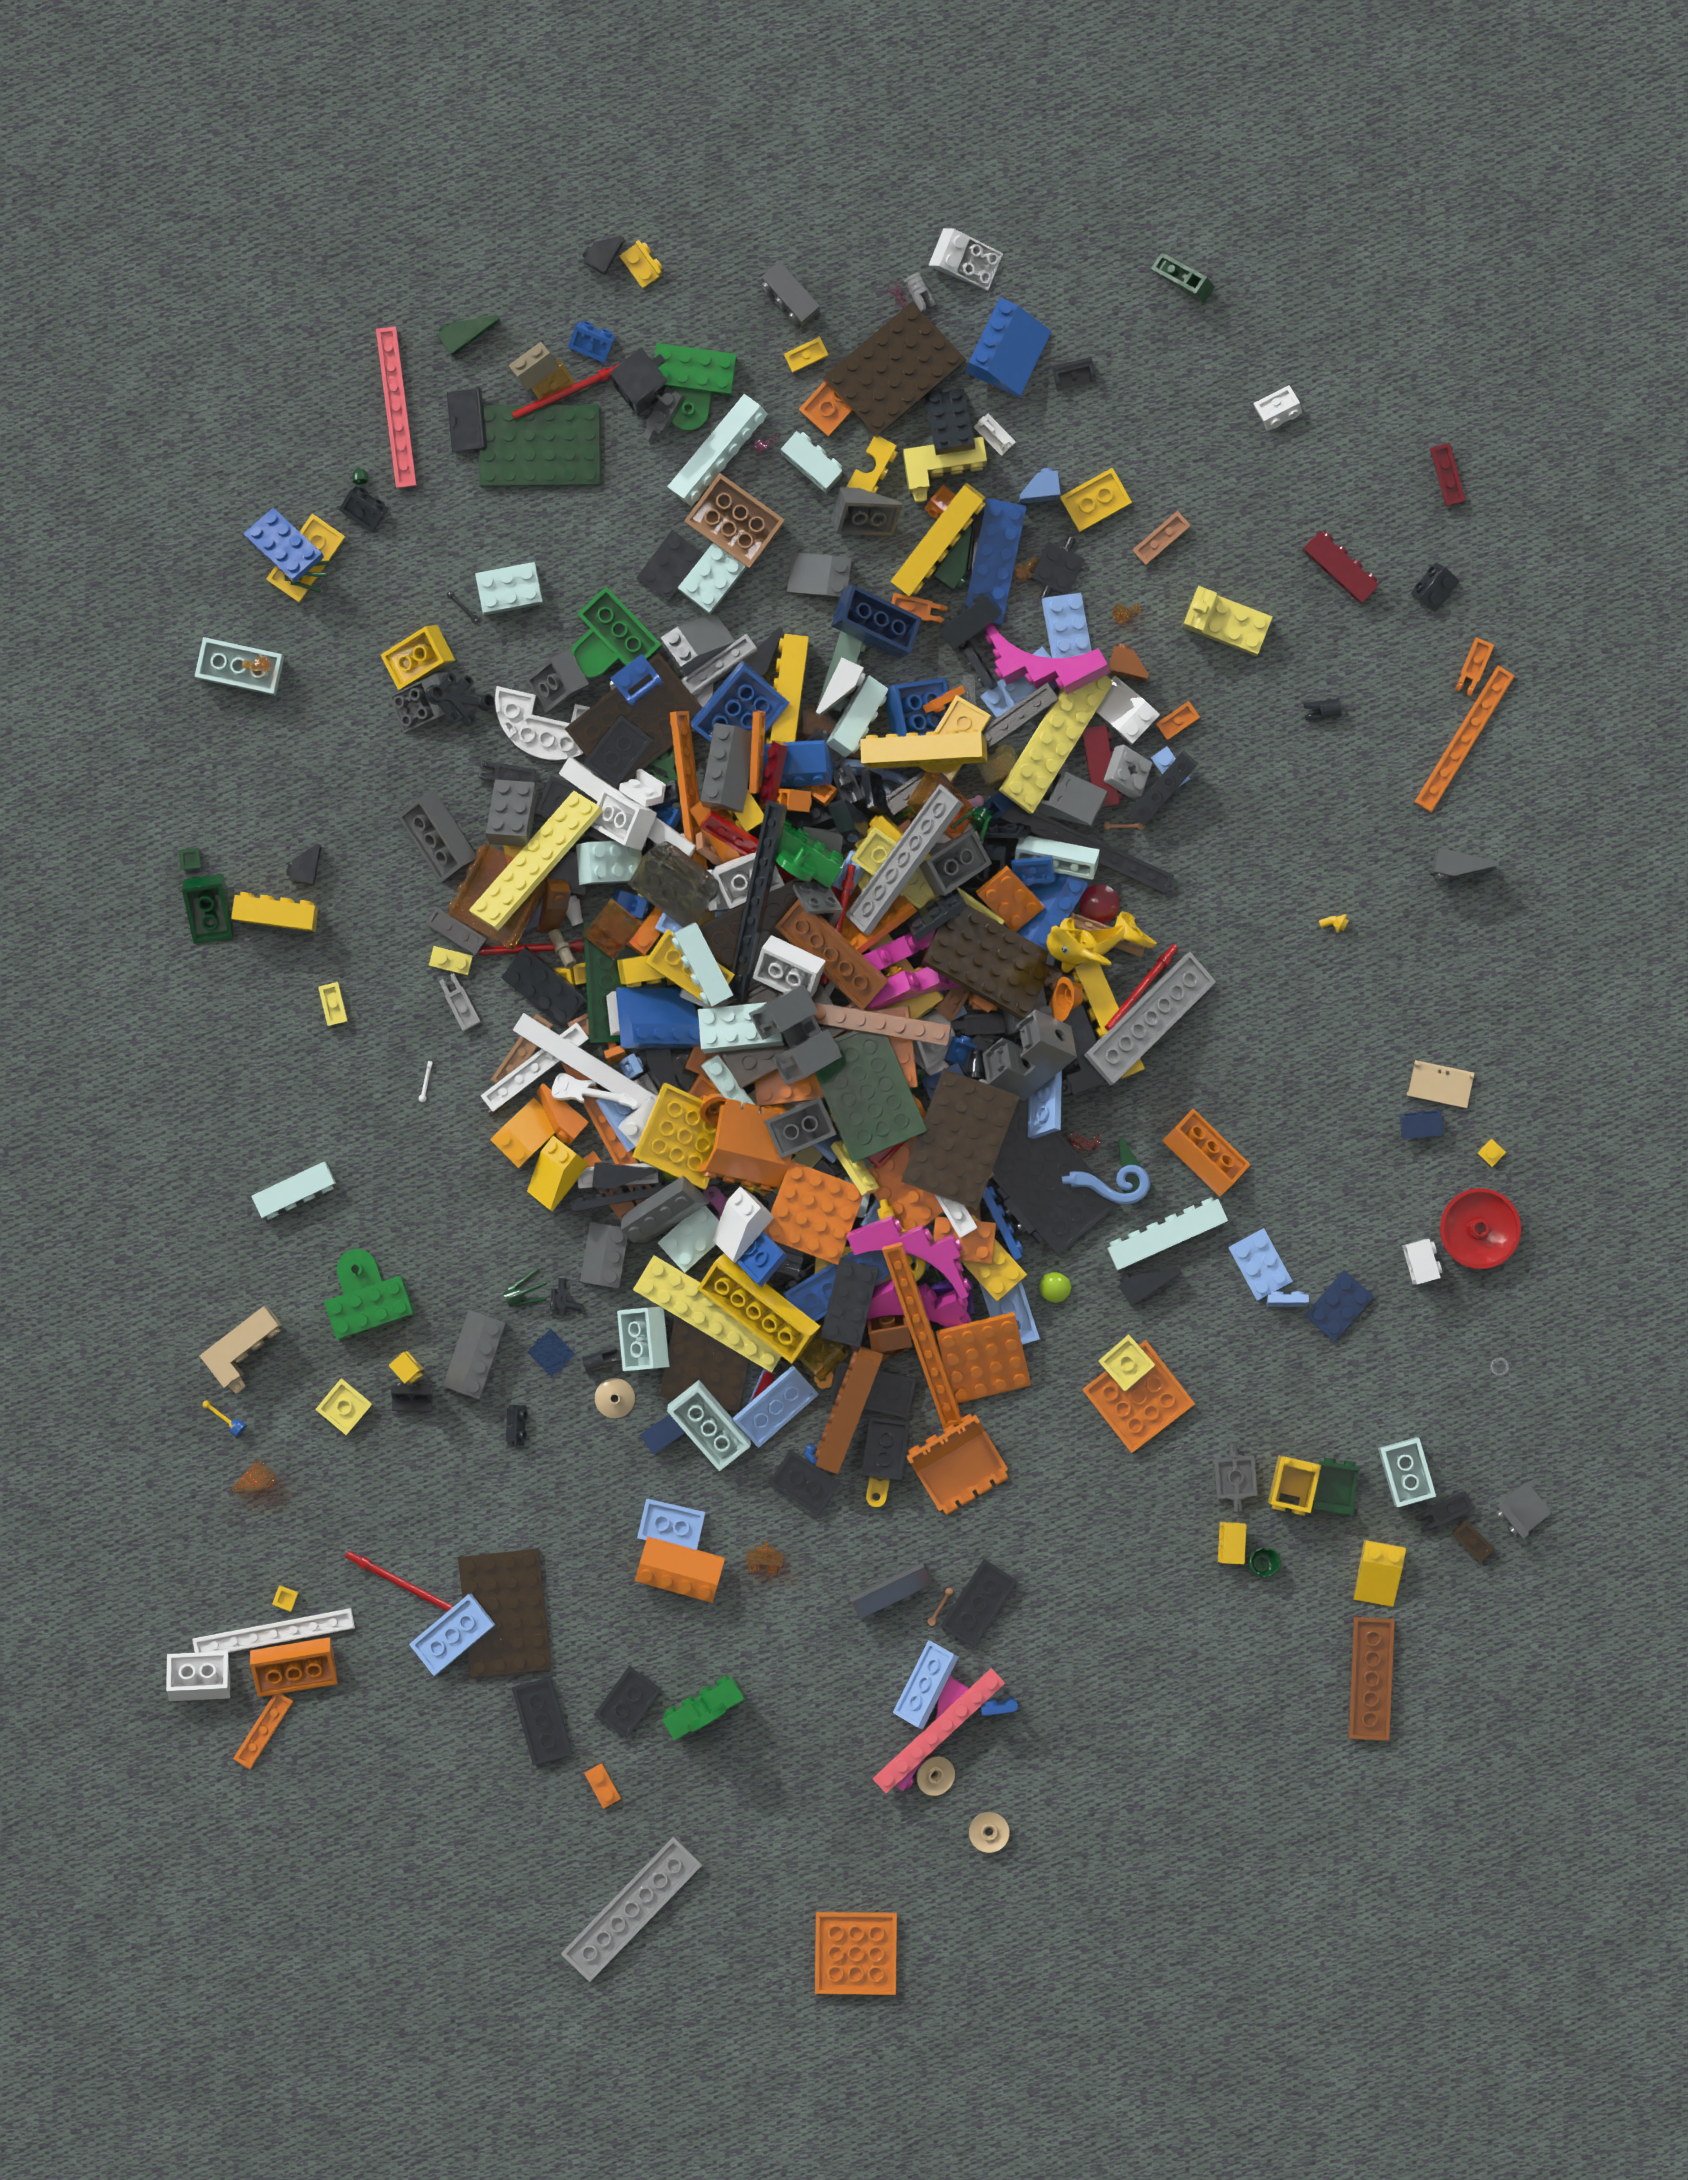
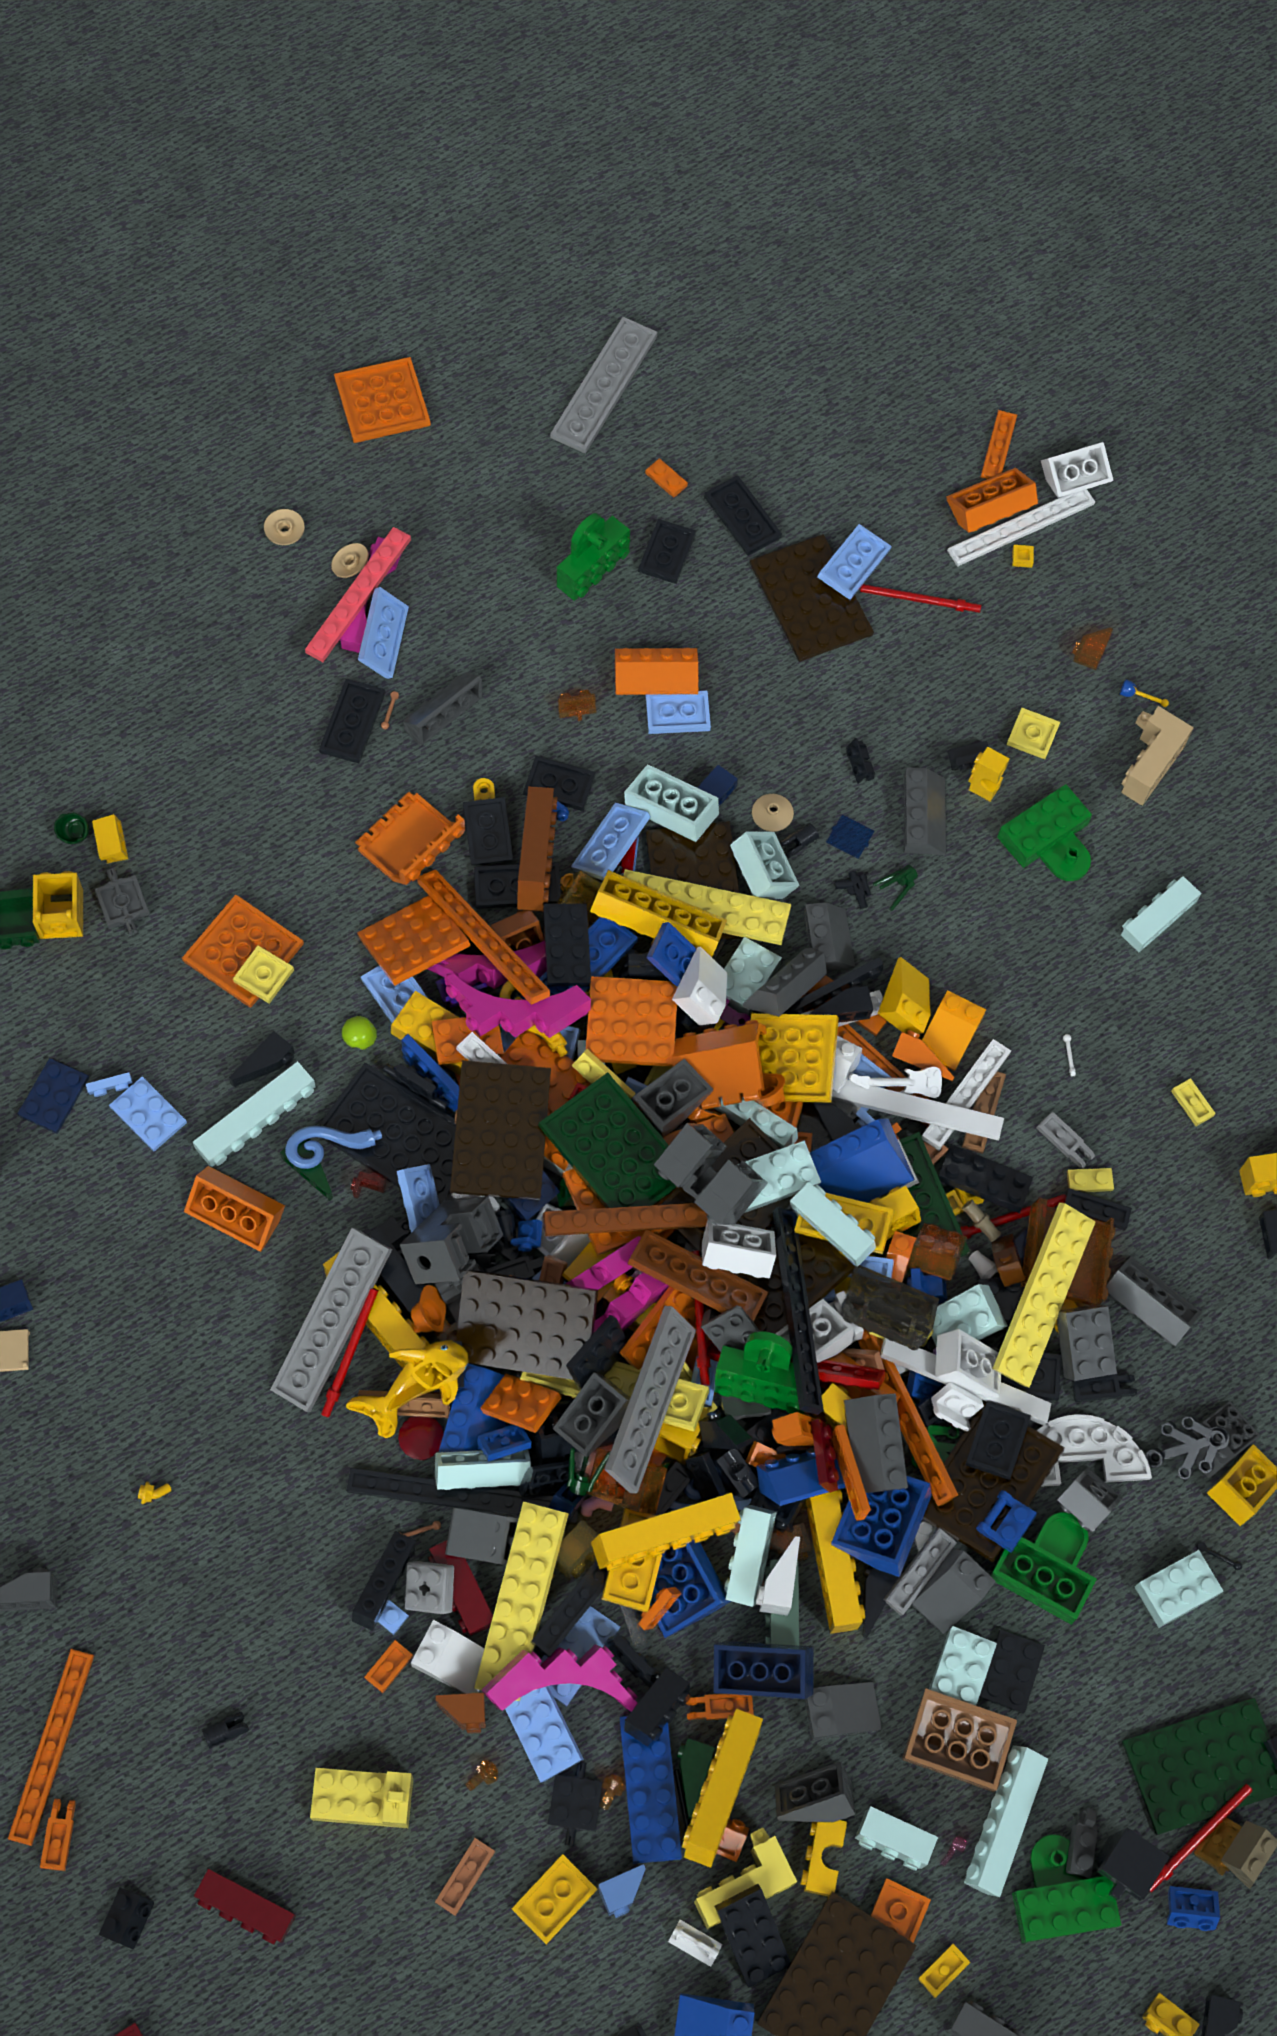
camera: 160 degrees right, 20 degrees down
(993, 1707) = (310, 625): blue plate -> none

